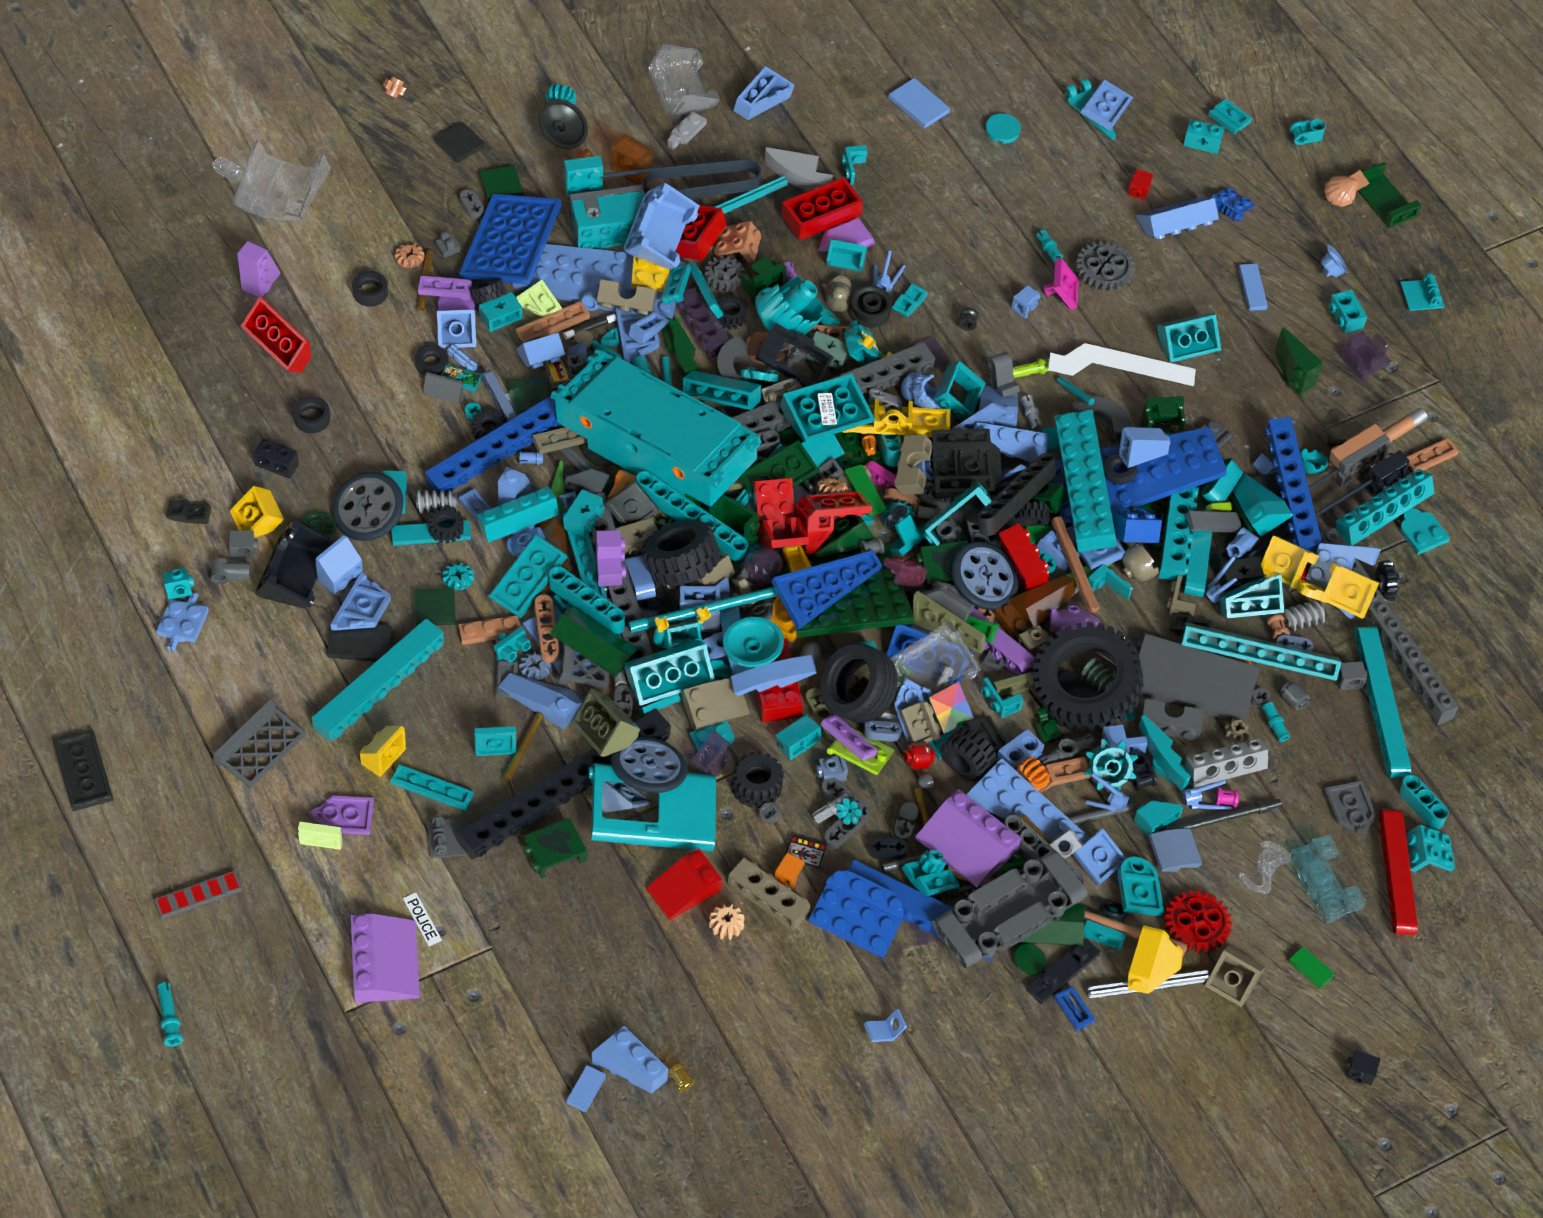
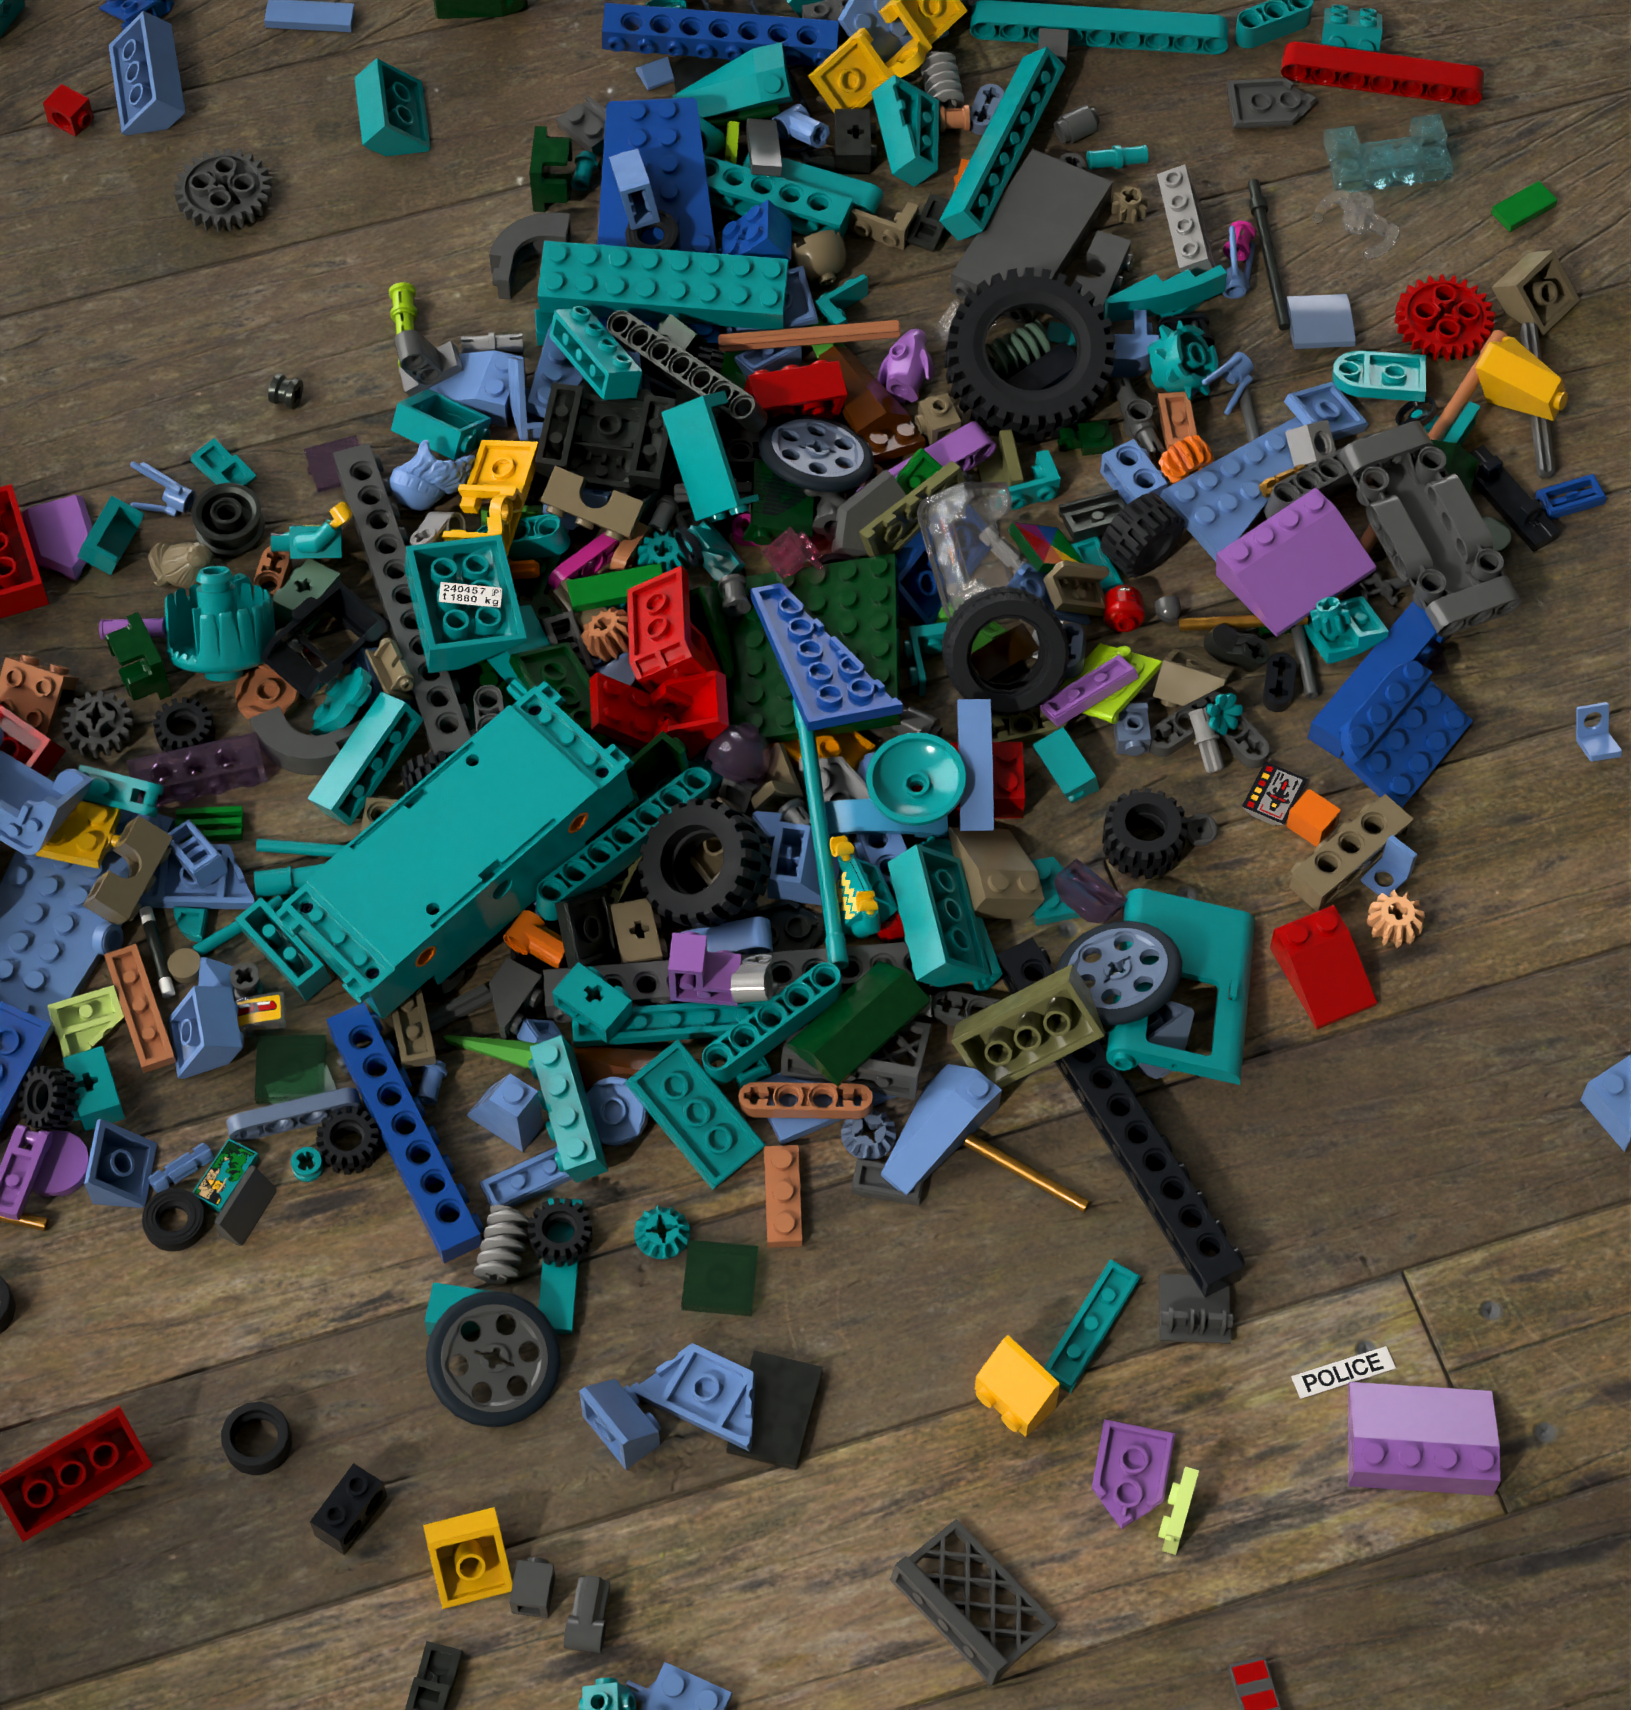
camera: 75 degrees left, 5 degrees up
(292, 566) = (601, 1506): black windscreen -> none
(319, 525) = (513, 1455): clear green wheel -> none
(378, 680) = (869, 1385): teal brick -> none
(495, 741) = (1030, 1205): teal tile -> none
(510, 643) = (840, 1172): teal hips -> none
(553, 846) = (1239, 1146): dark green panel -> none
(606, 582) = (753, 980): none -> light grey piece
(683, 350) = (259, 809): dark green slope -> none
(706, 291) = (142, 749): teal tile -> none
(769, 919) = (1397, 861): none -> medium blue bracket
(795, 558) = (748, 704): yellow tile -> none
(878, 794) = (1188, 677): none -> dark tan slope
(1018, 449) = (595, 353): none -> teal brick
(1025, 301) = (269, 307): medium blue brick -> none
(1049, 245) = (160, 255): teal pin -> none
(1064, 284) = (253, 250): dark pink tile -> none
(1076, 391) = (470, 273): teal bar -> none
(1088, 354) = (418, 207): white sticker -> none
(1156, 816) = (1267, 332): teal slope -> none
(1216, 591) = (883, 175): medium blue plant -> none

